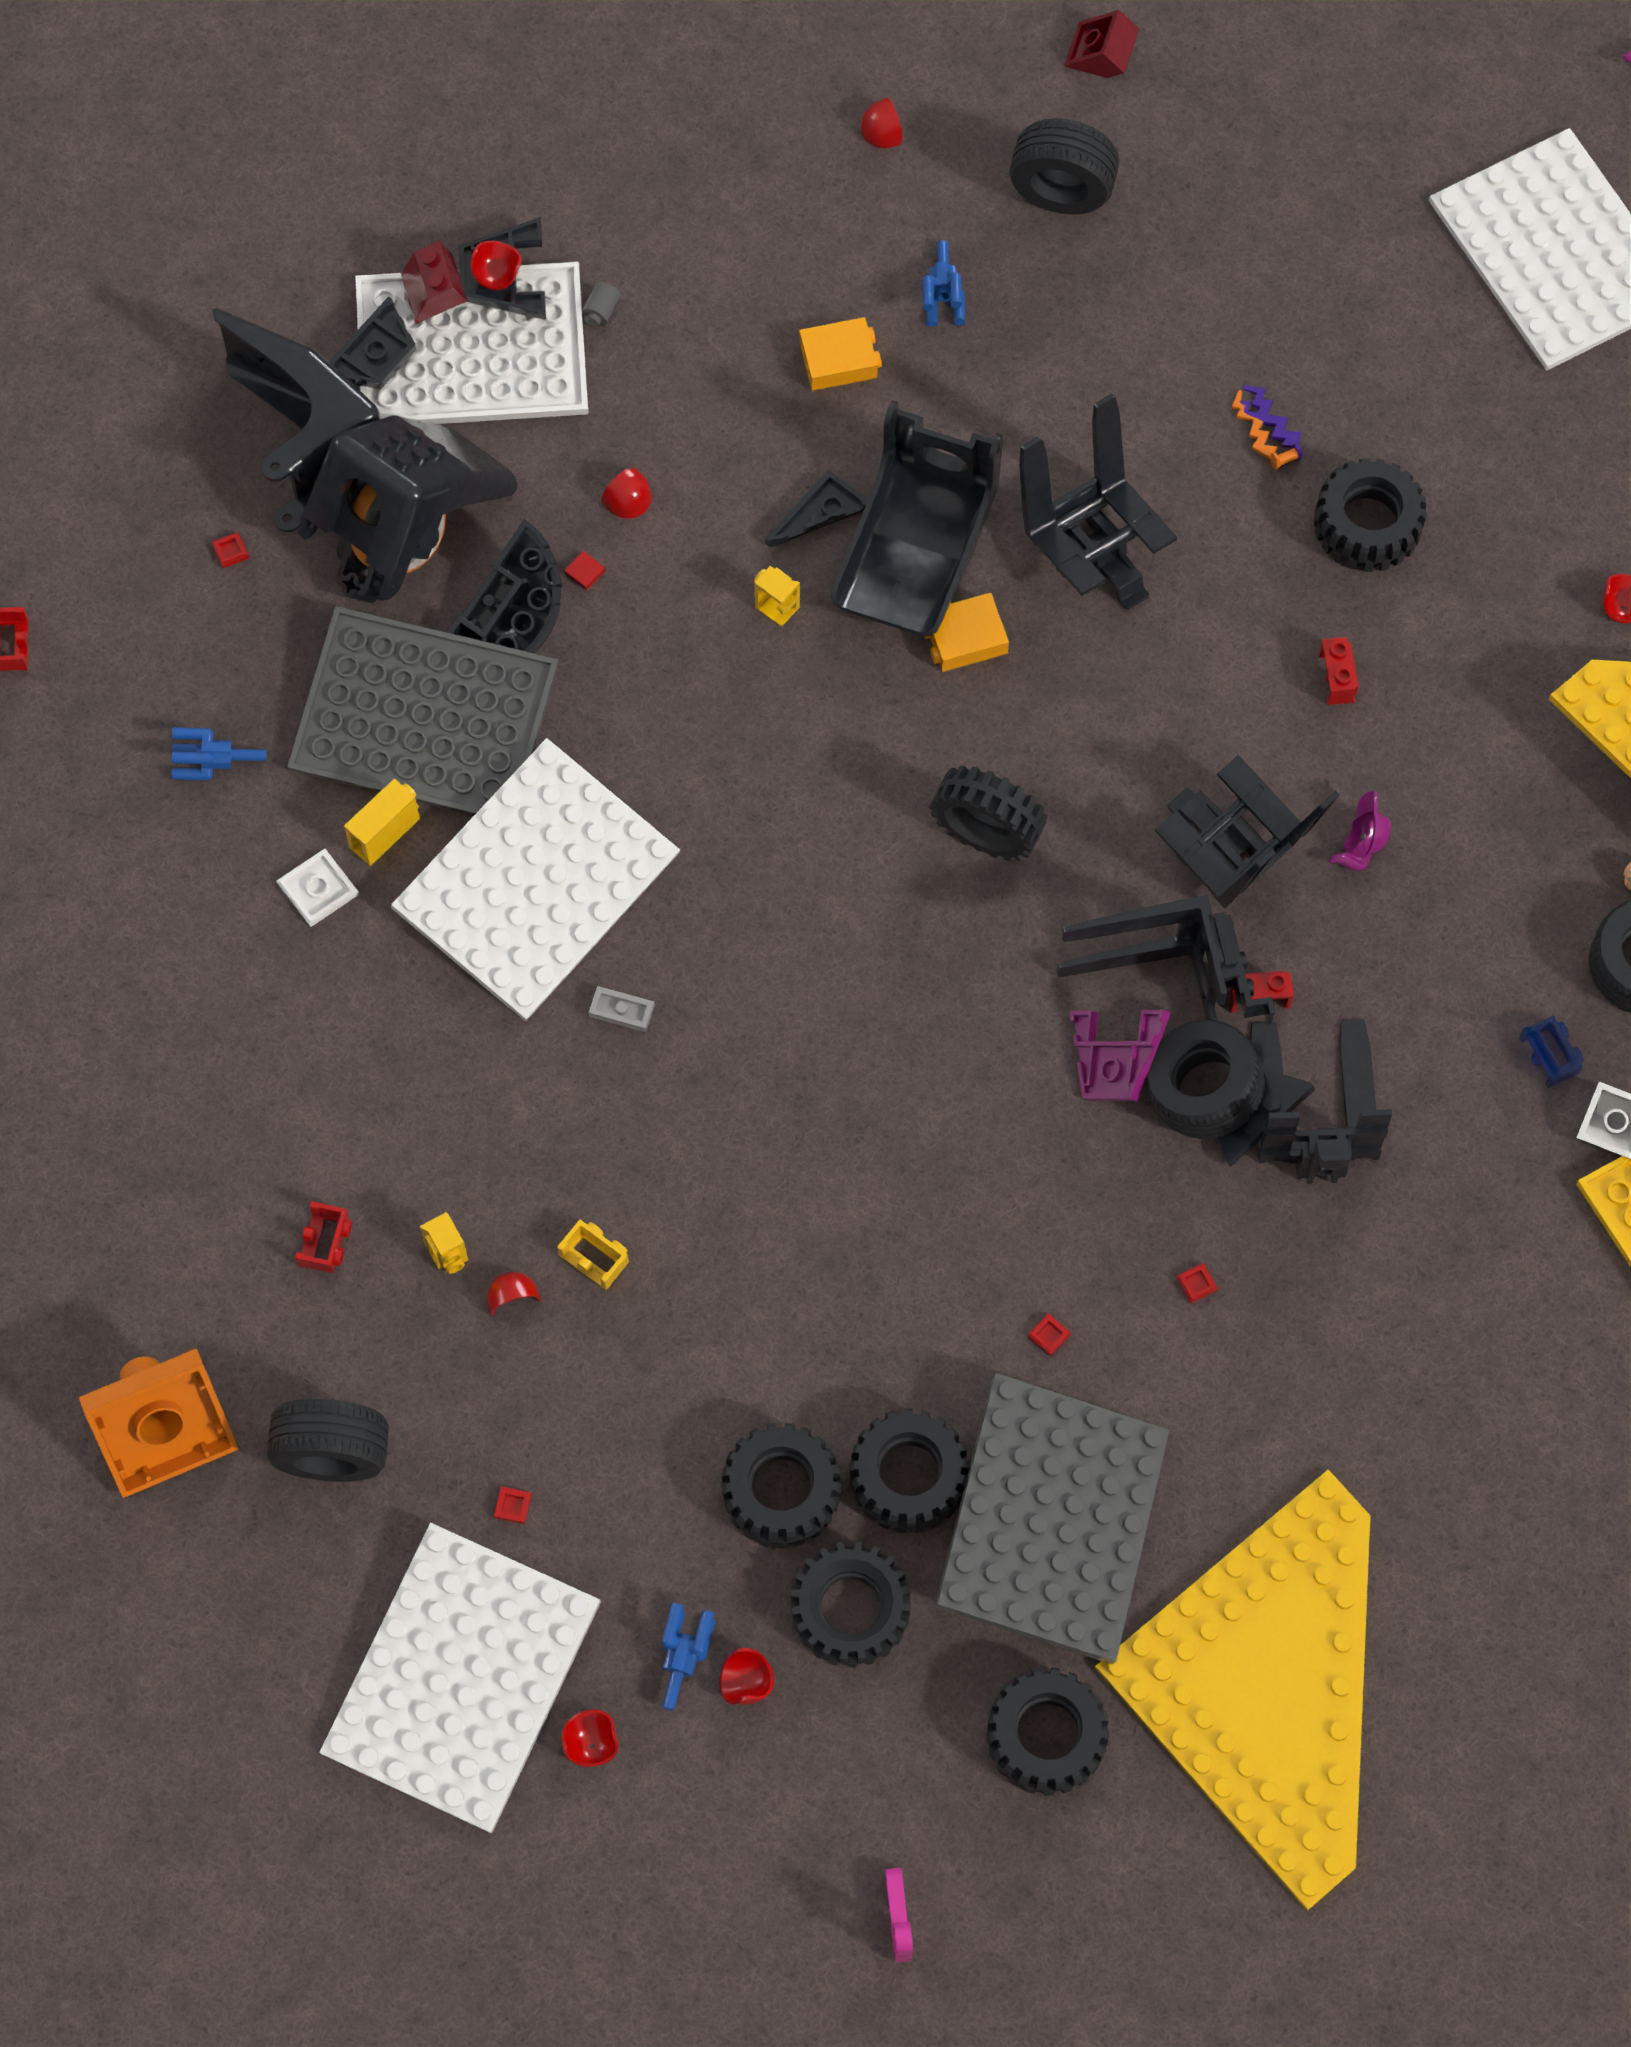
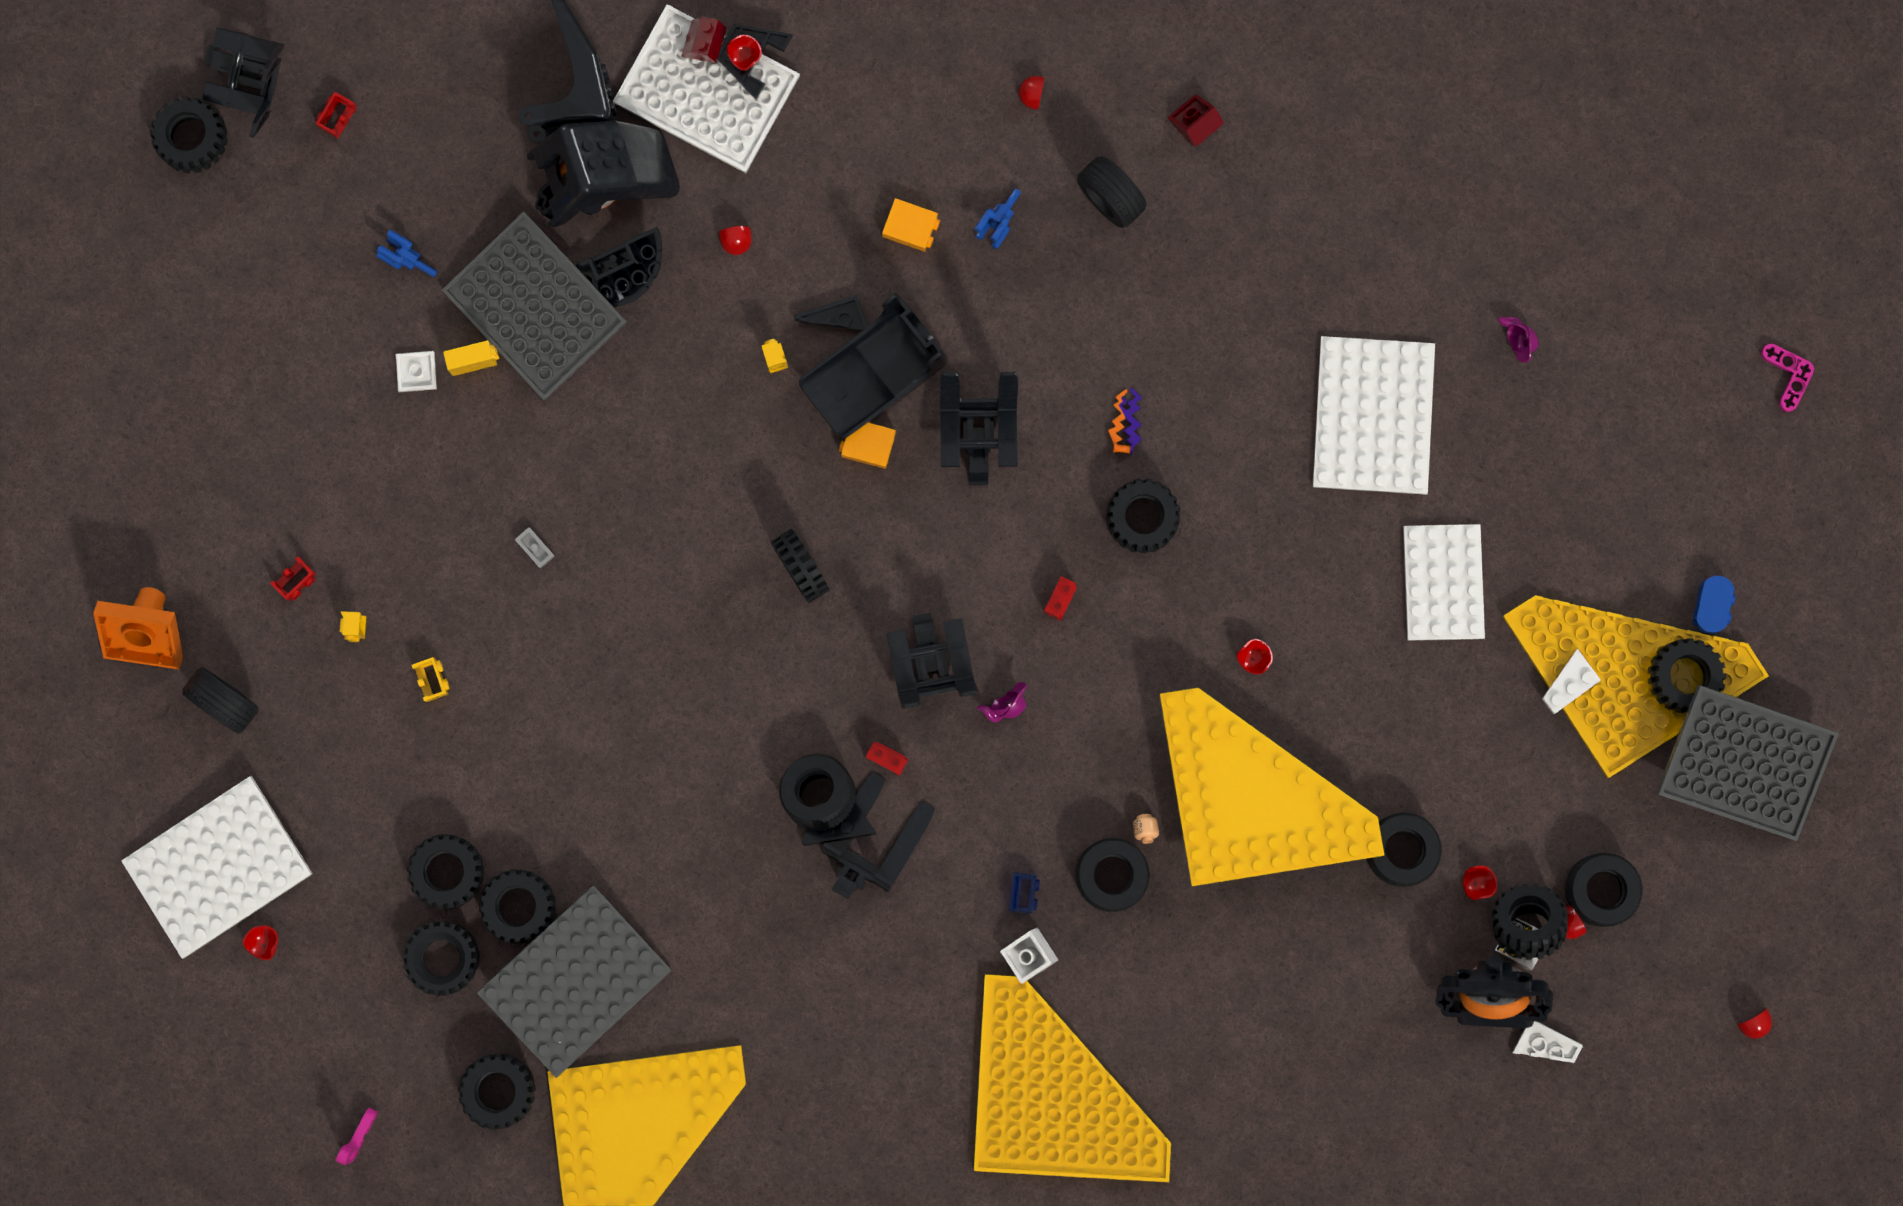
camera: 30 degrees right, 15 degrees up
(230, 550) = (493, 134): red tile -> none
(376, 348) = (645, 61): black wing -> none
(509, 1288) = (375, 671): red helmet -> none
(512, 1505) = (302, 790): red tile -> none
(535, 879) = (535, 442): white plate -> none
(584, 570) = (681, 270): red tile -> none
(600, 304) = (794, 109): dark grey brick -> none
(683, 1650) = (339, 926): blue plant -> none
(745, 1677) = (361, 963): red helmet -> none
(1049, 1334) = (644, 877): red tile -> none
(1116, 1067) = (773, 751): magenta wing -> none
(1195, 934) = (878, 717): black piece -> none
(1197, 1283) = (742, 899): red tile -> none

